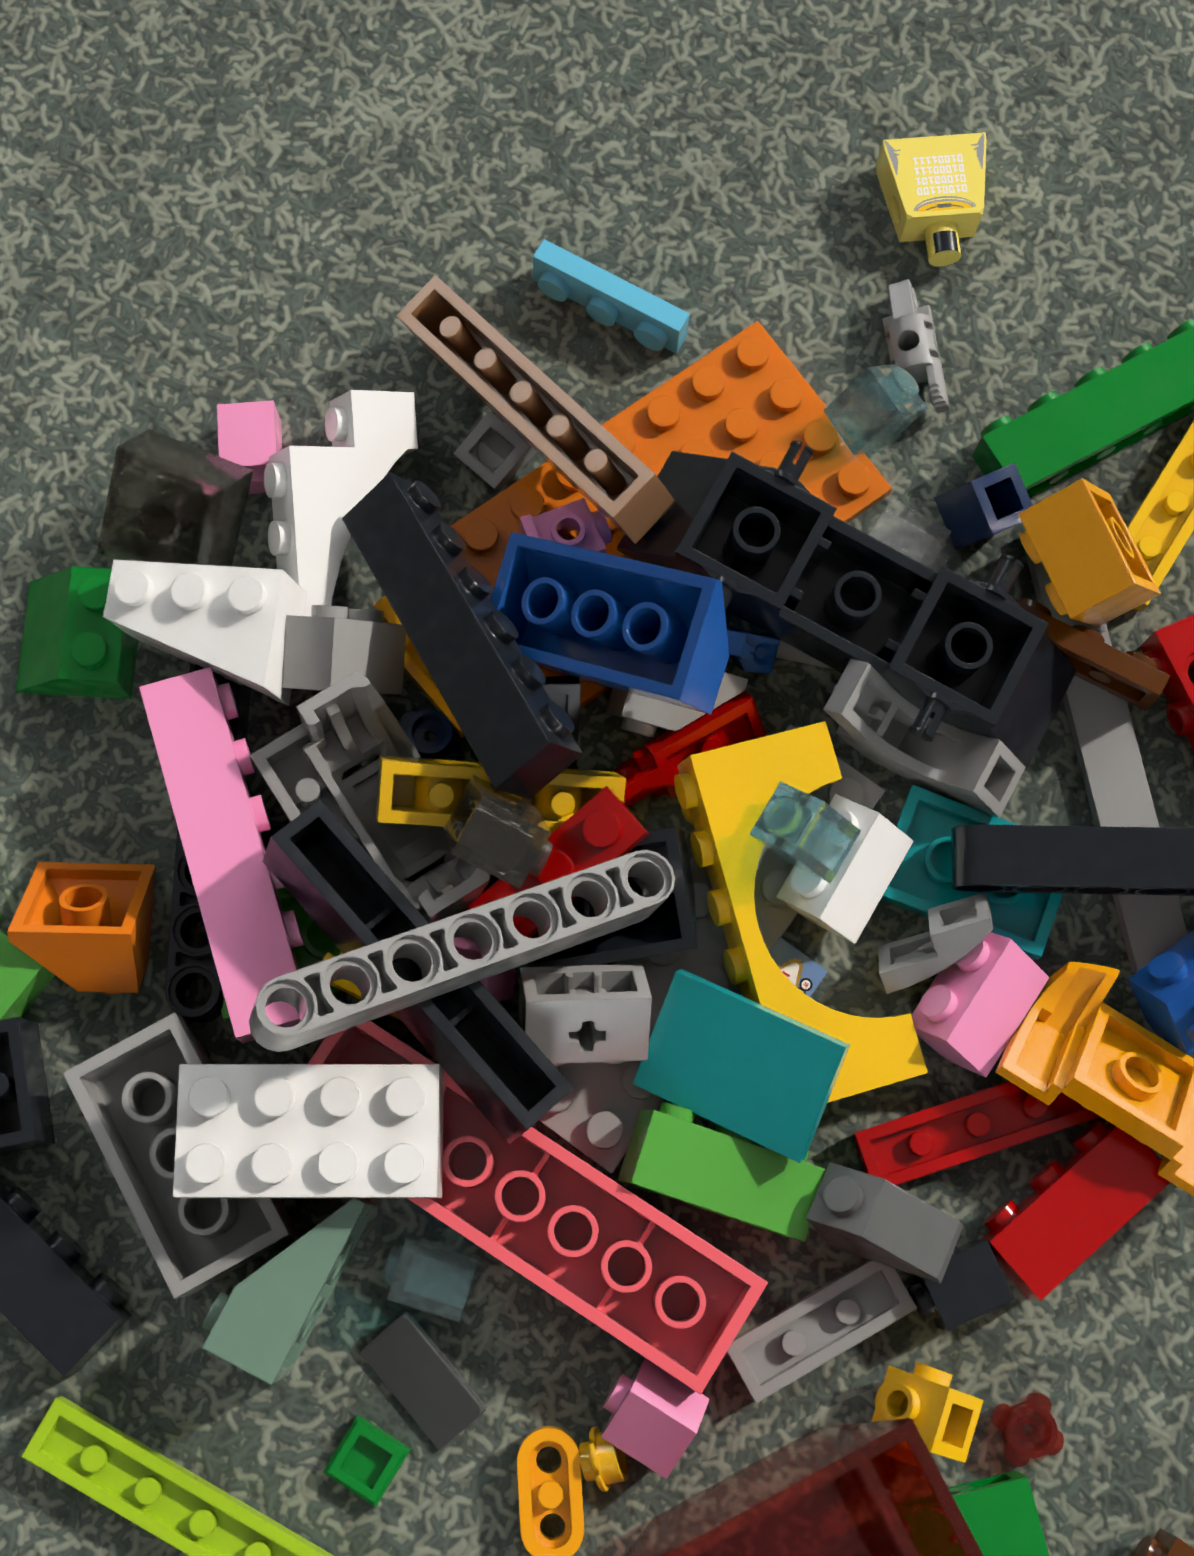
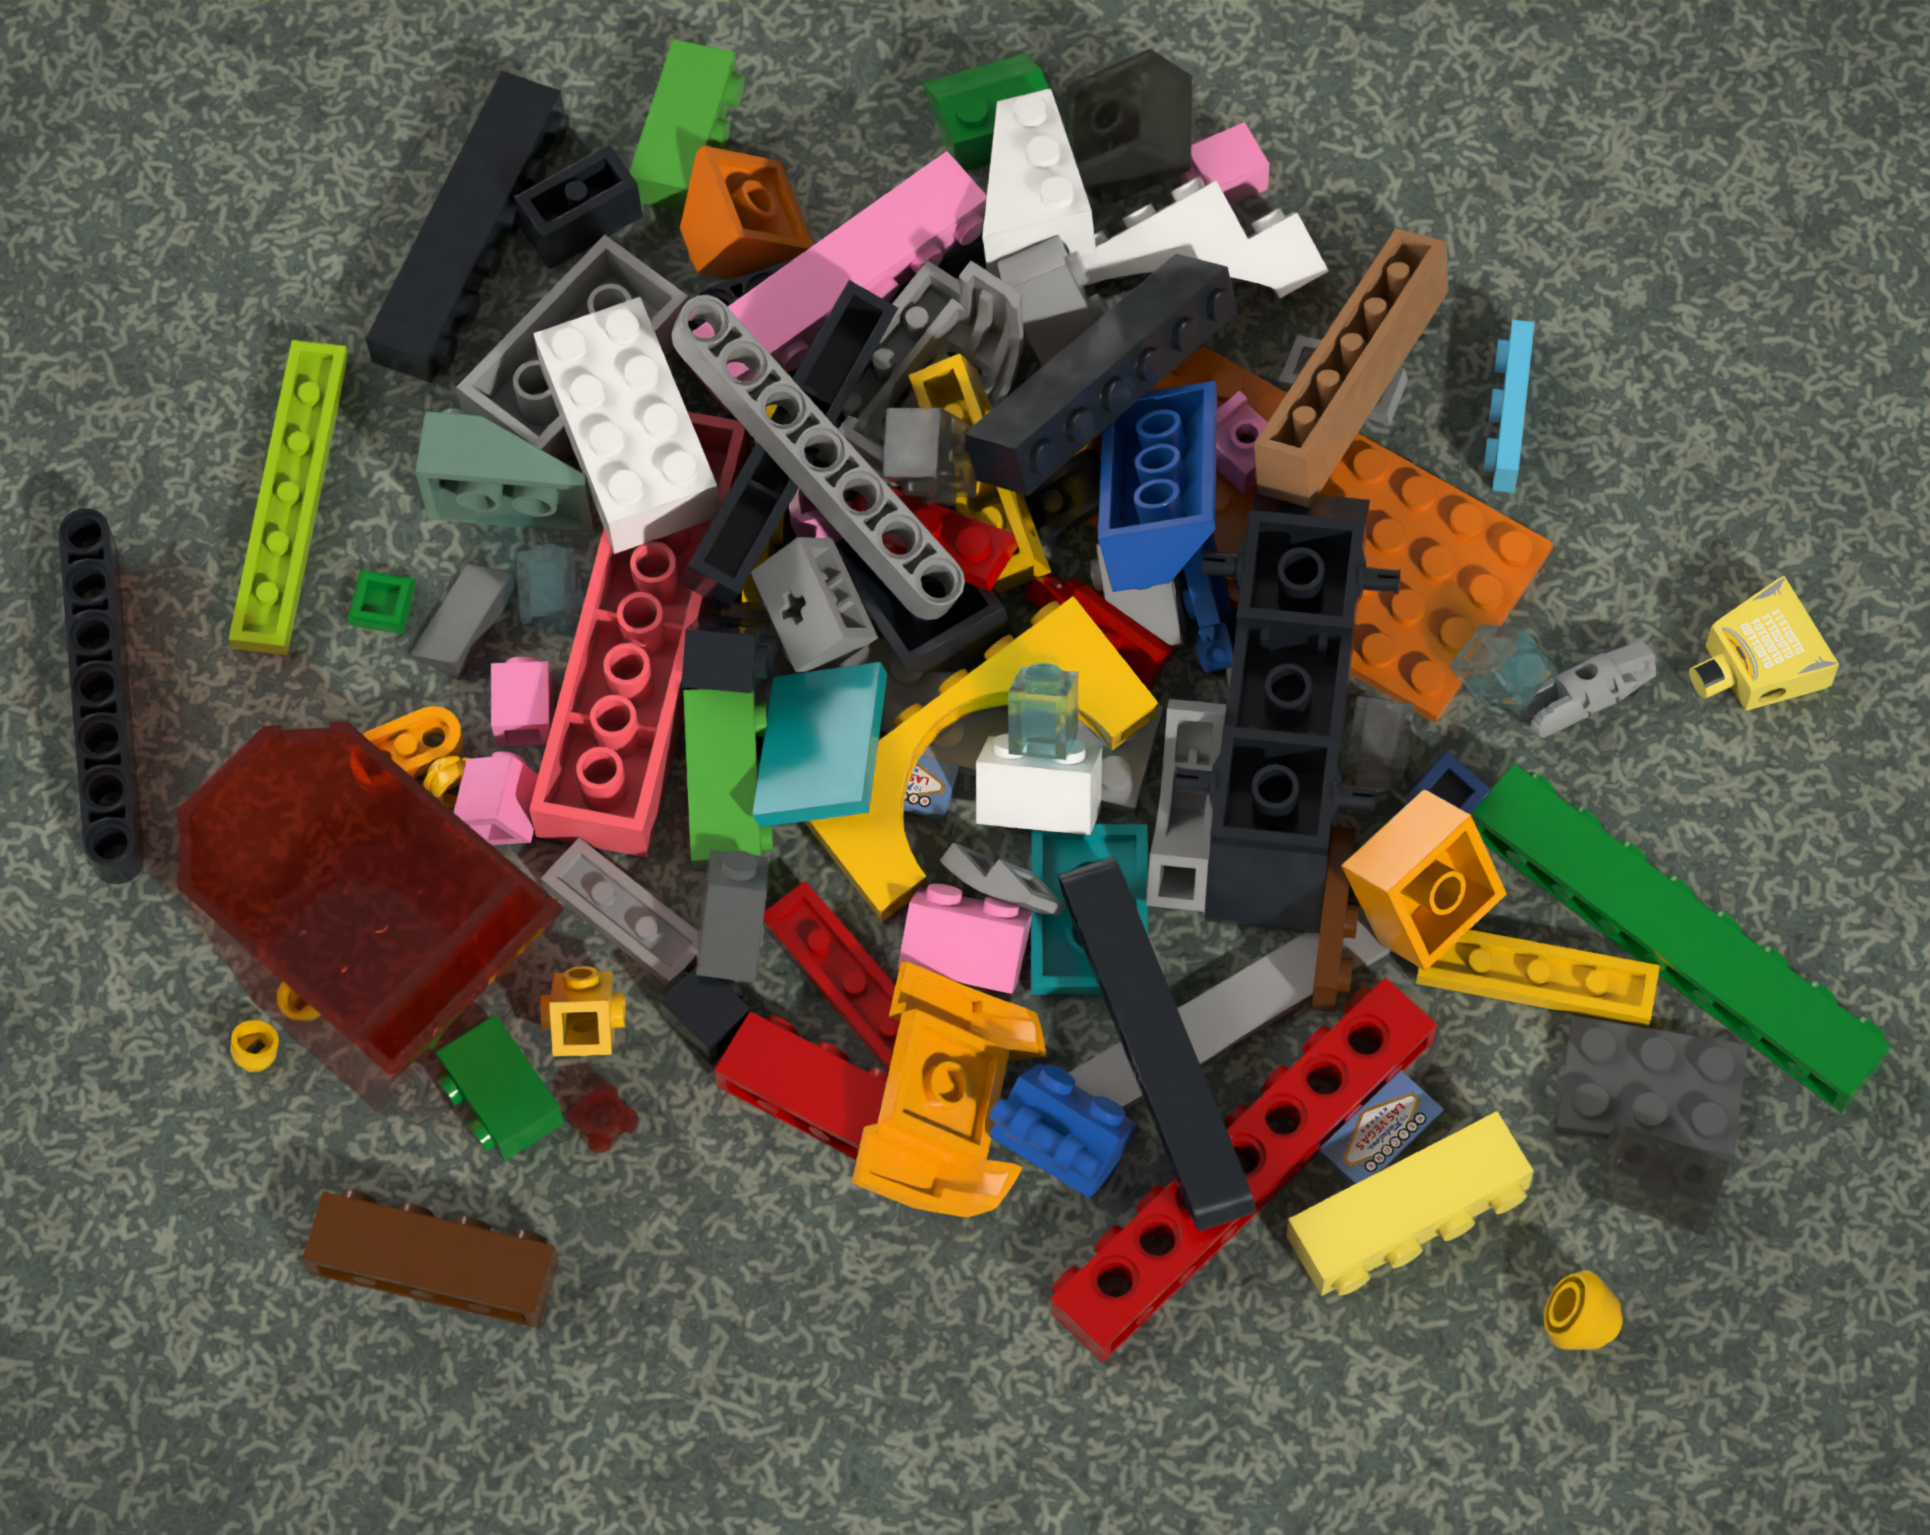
camera: 75 degrees right, 10 degrees down
(548, 1352) = (521, 702): none -> bright pink brick
(614, 1122) = (728, 653): none -> black brick

